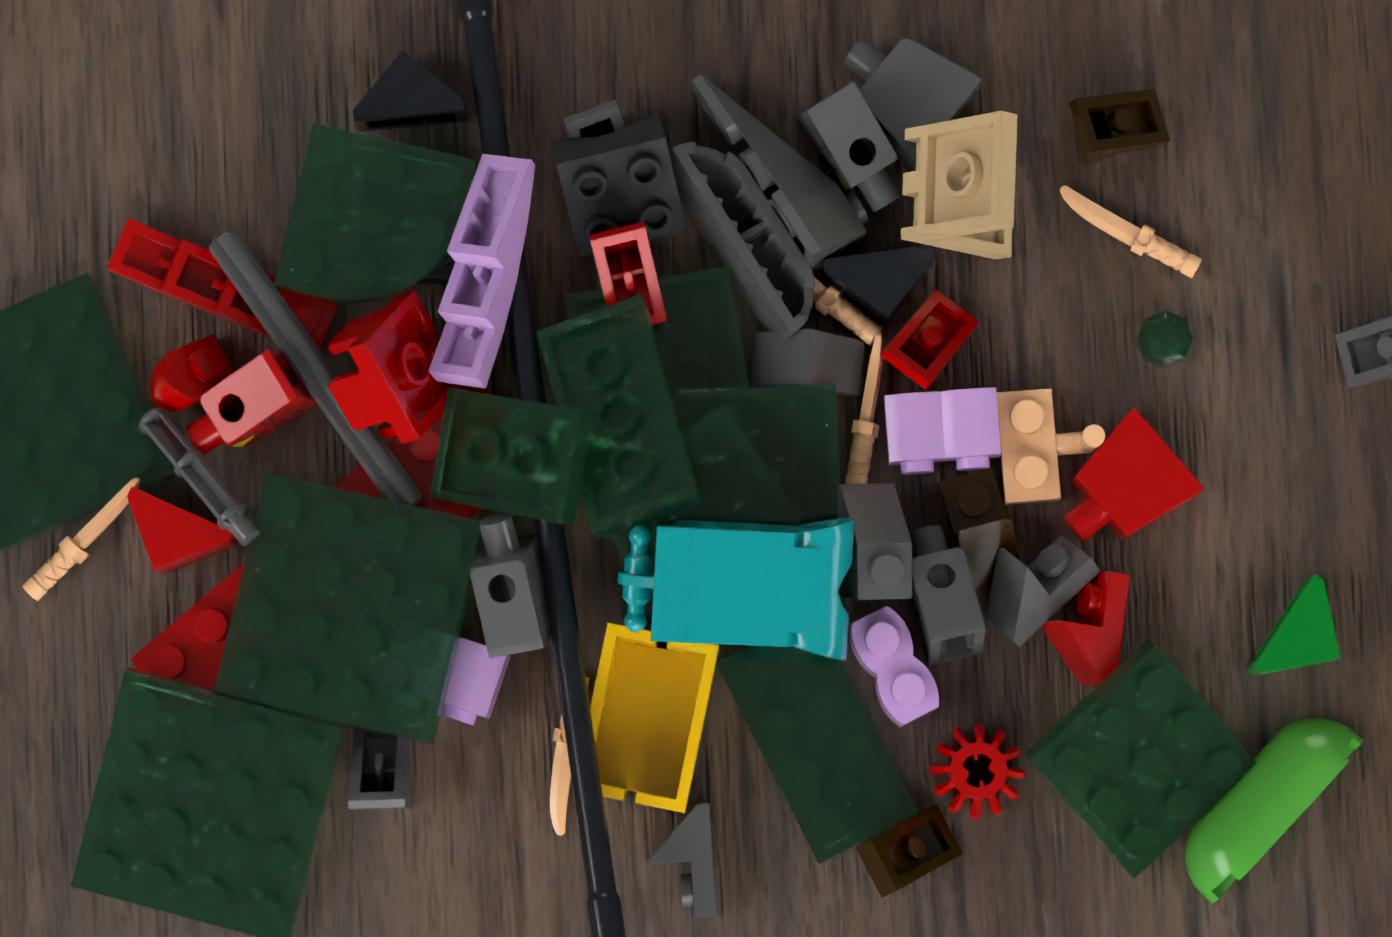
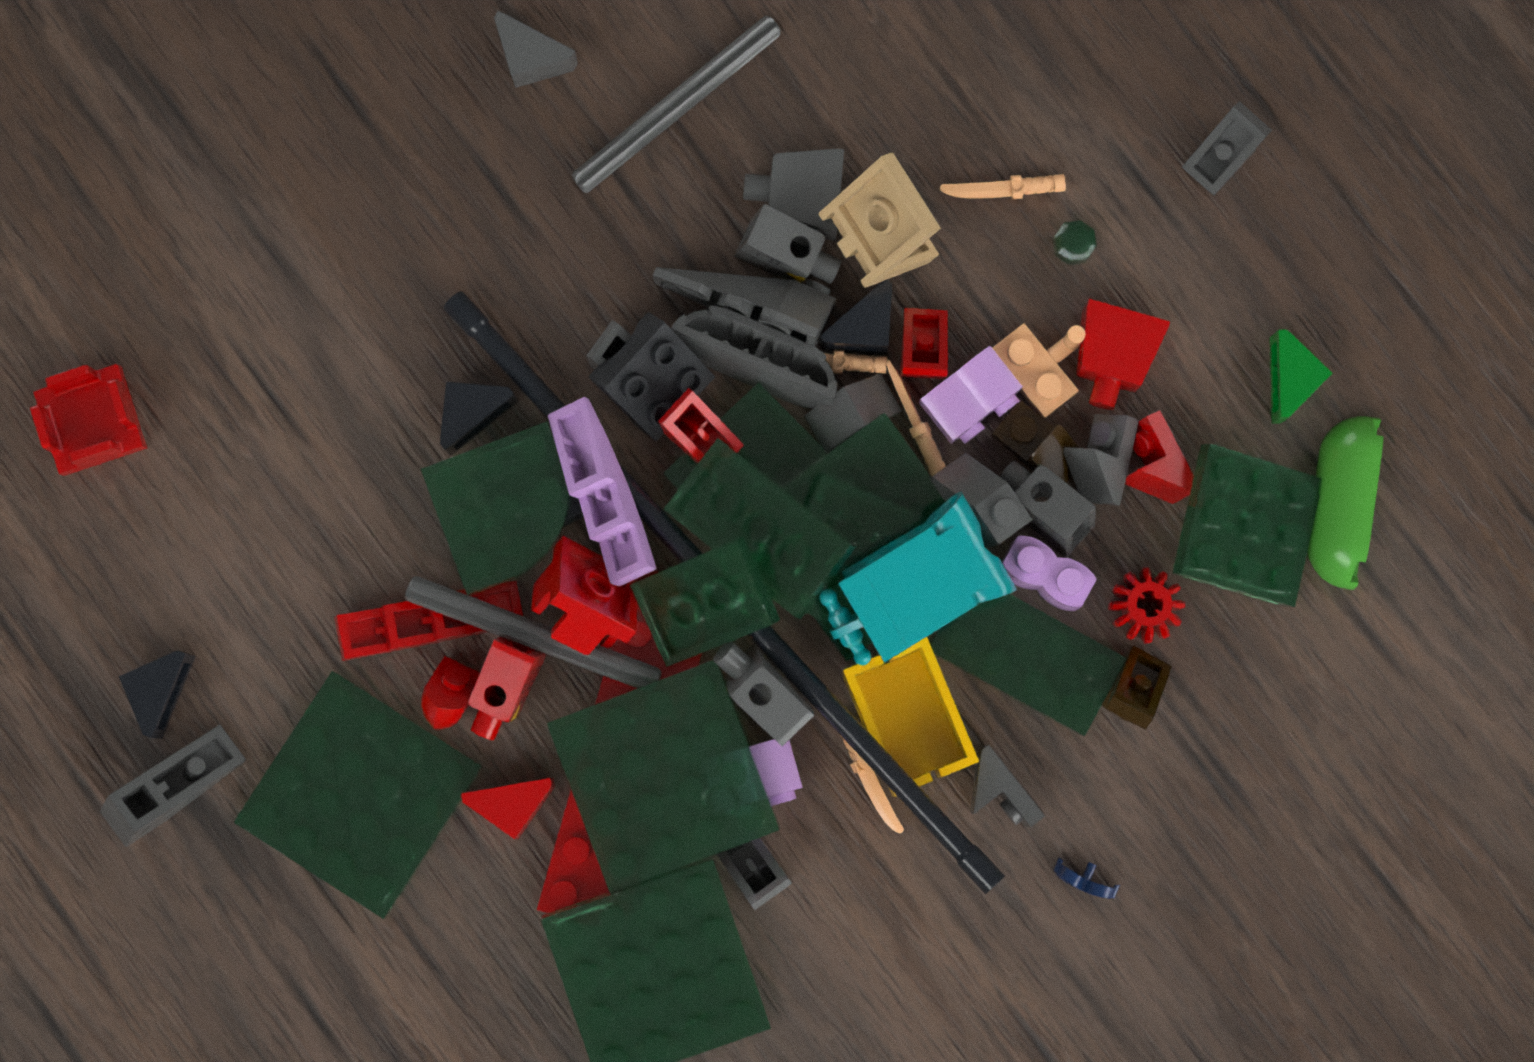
camera: 40 degrees left, 0 degrees up
(74, 550) = (448, 862): light nougat piece -> none
(191, 466) = (492, 753): dark grey piece -> none
(1118, 123) = (950, 122): dark brown slope -> none

